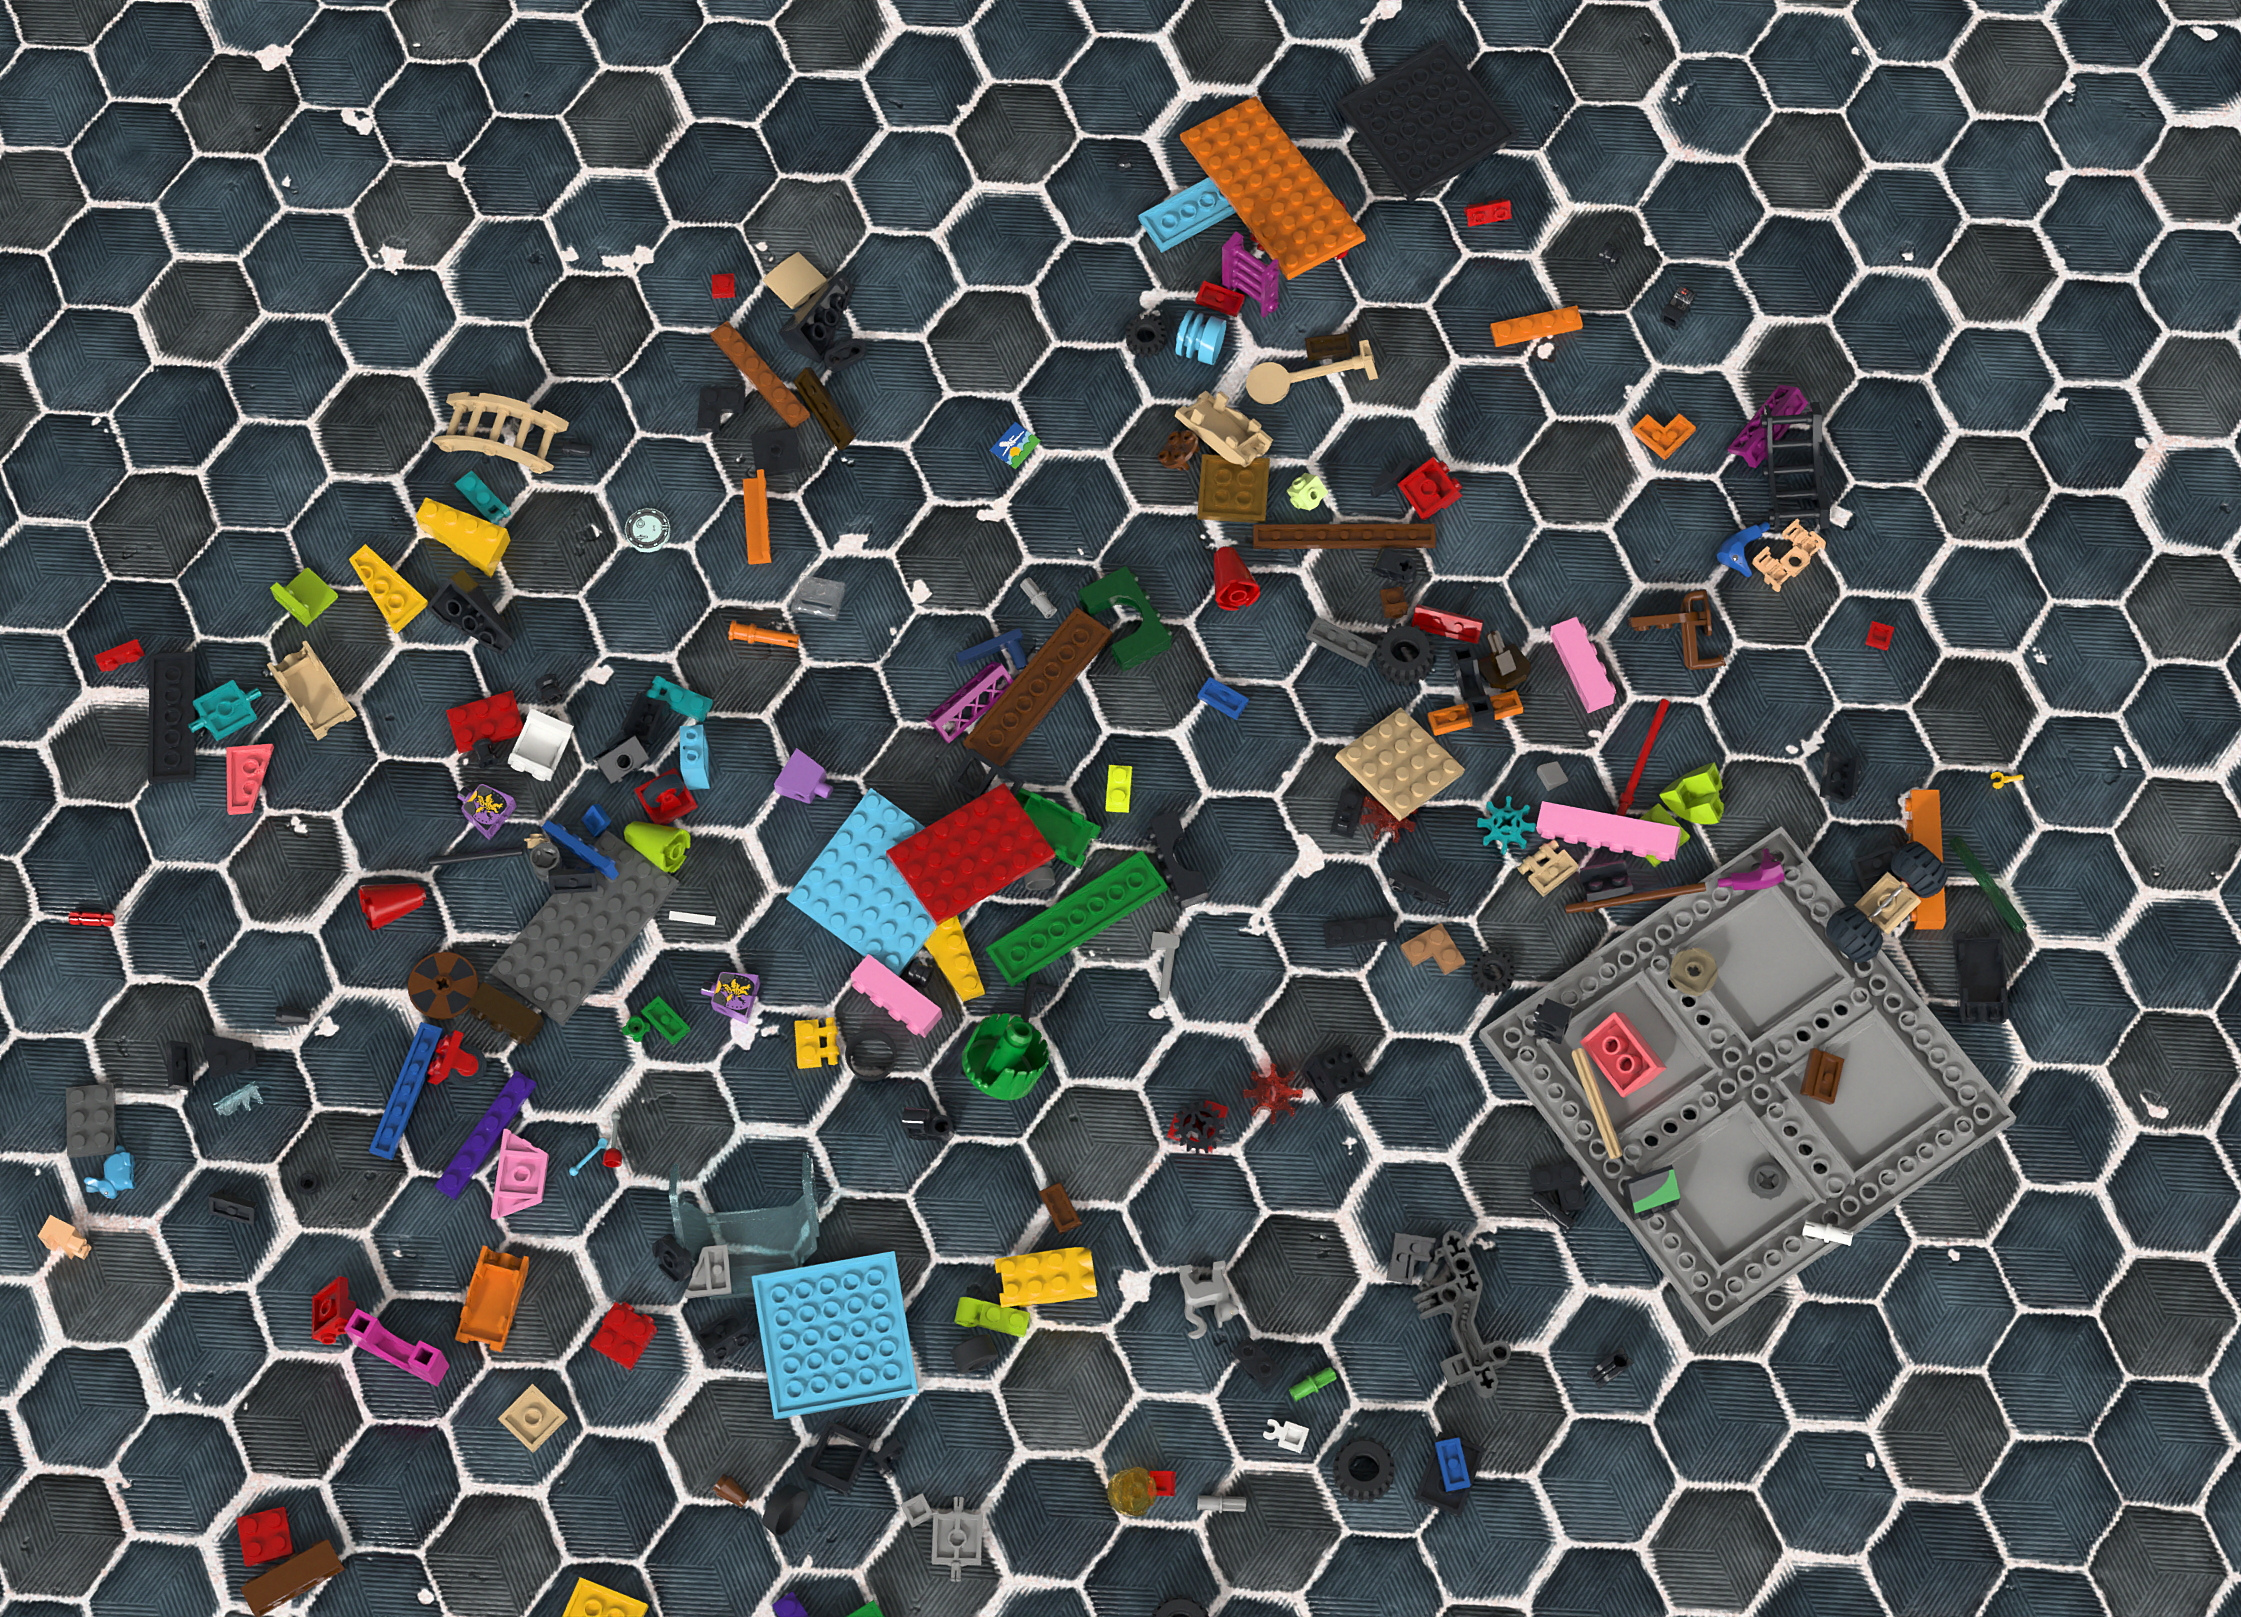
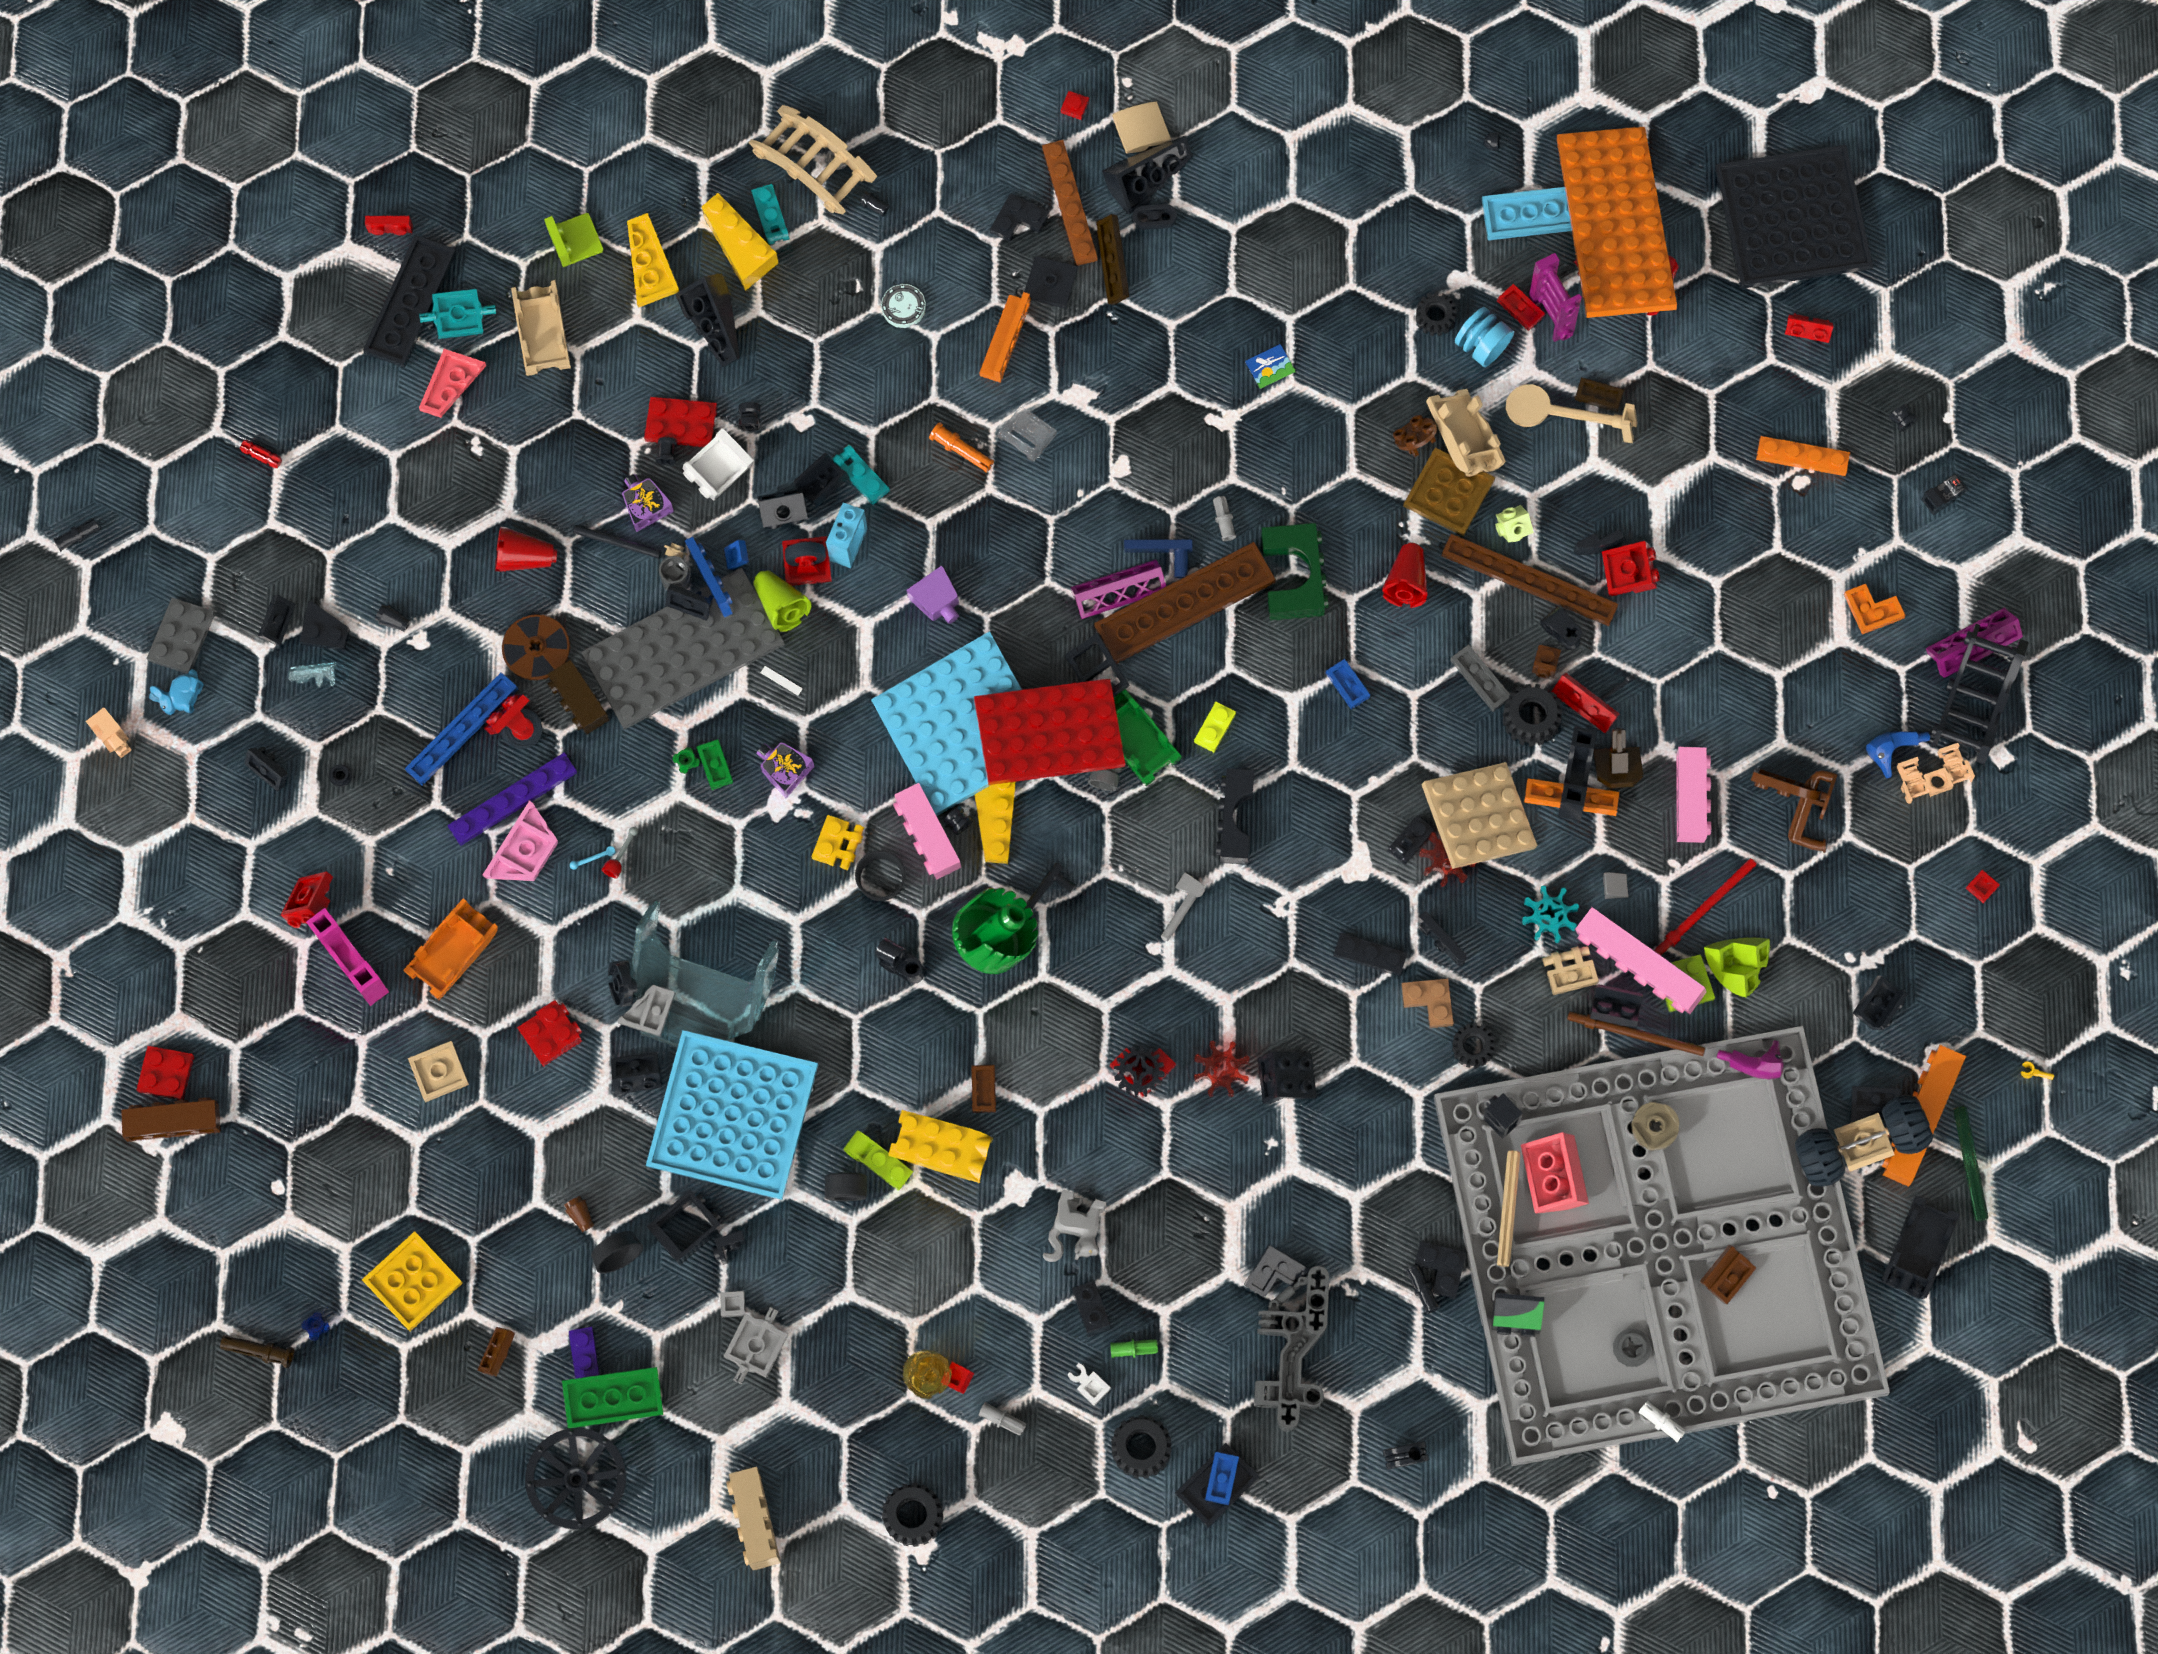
camera: 25 degrees right, 5 degrees up
(1076, 918) = (1121, 830): green plate -> none

